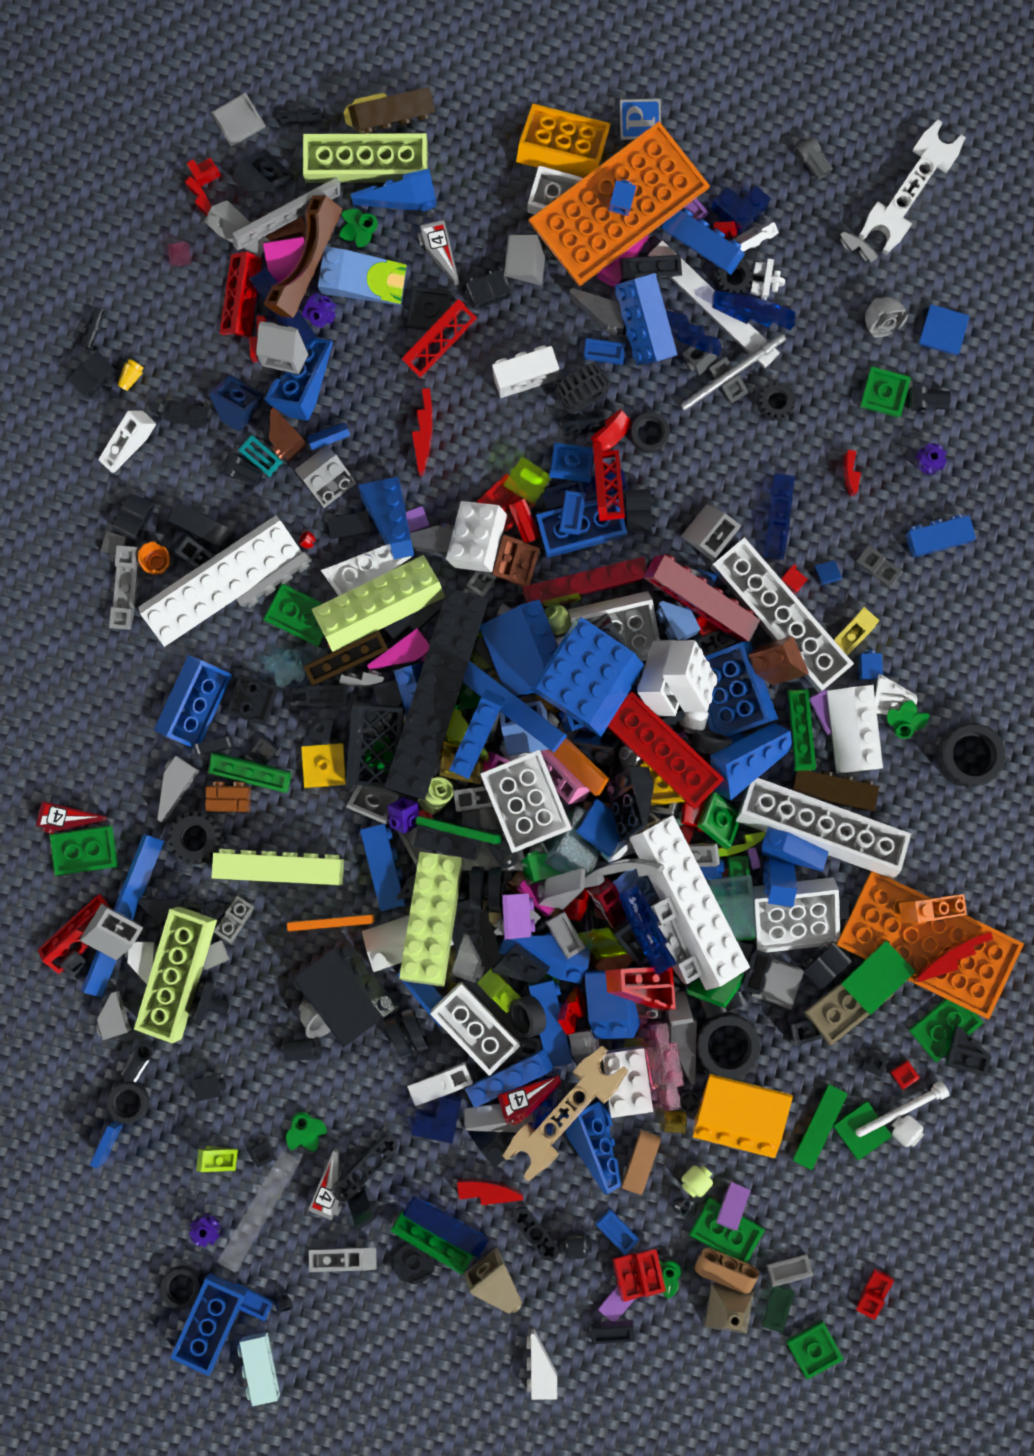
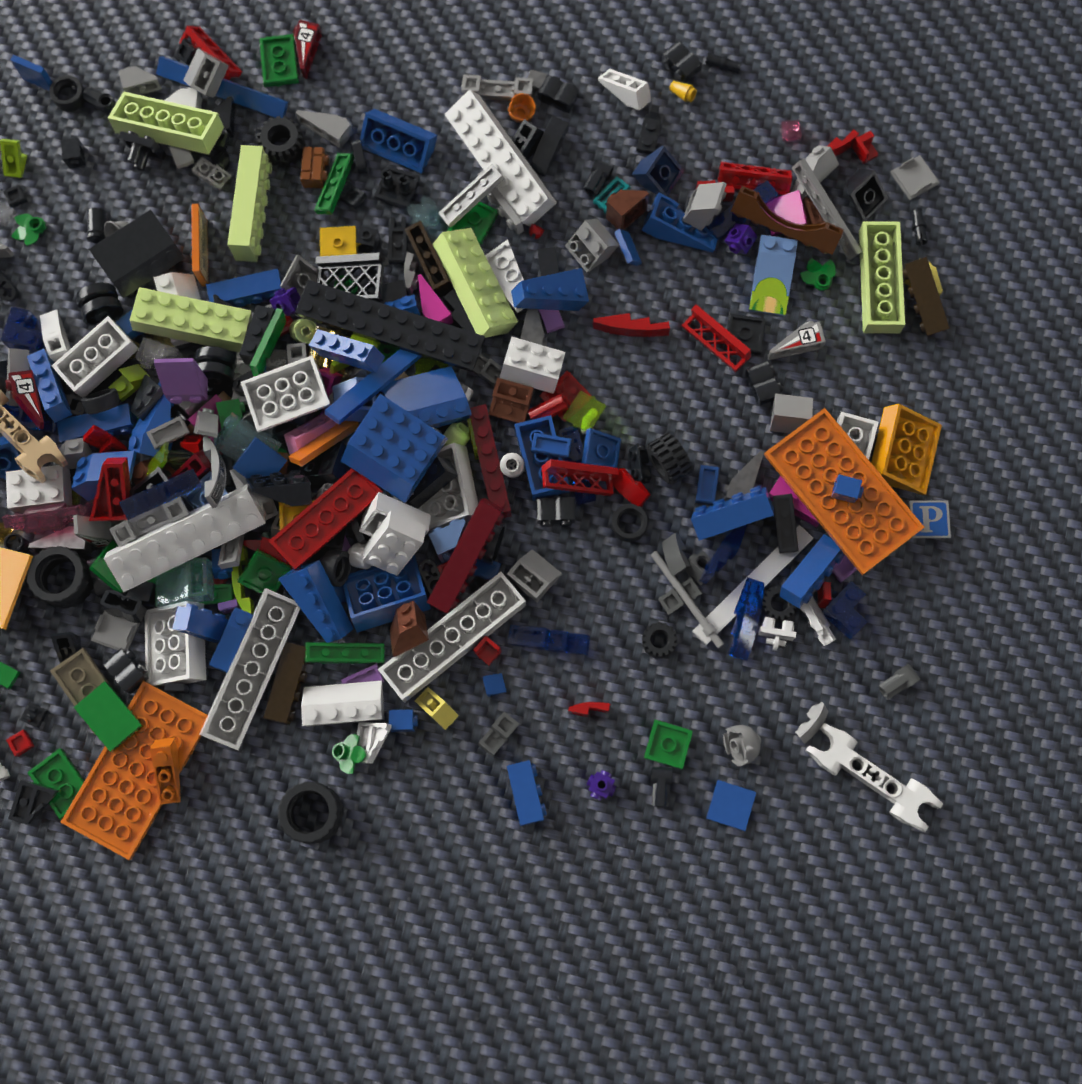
camera: 95 degrees right, 10 degrees down
(270, 610) = (471, 195): none -> light grey plate
(411, 193) = (852, 314): blue wedge -> none
(525, 371) = (685, 409): white brick -> none
(593, 551) = (507, 460): none -> white head
(686, 384) = (673, 552): none -> dark grey slope
(947, 960) = (116, 780): red slope -> none

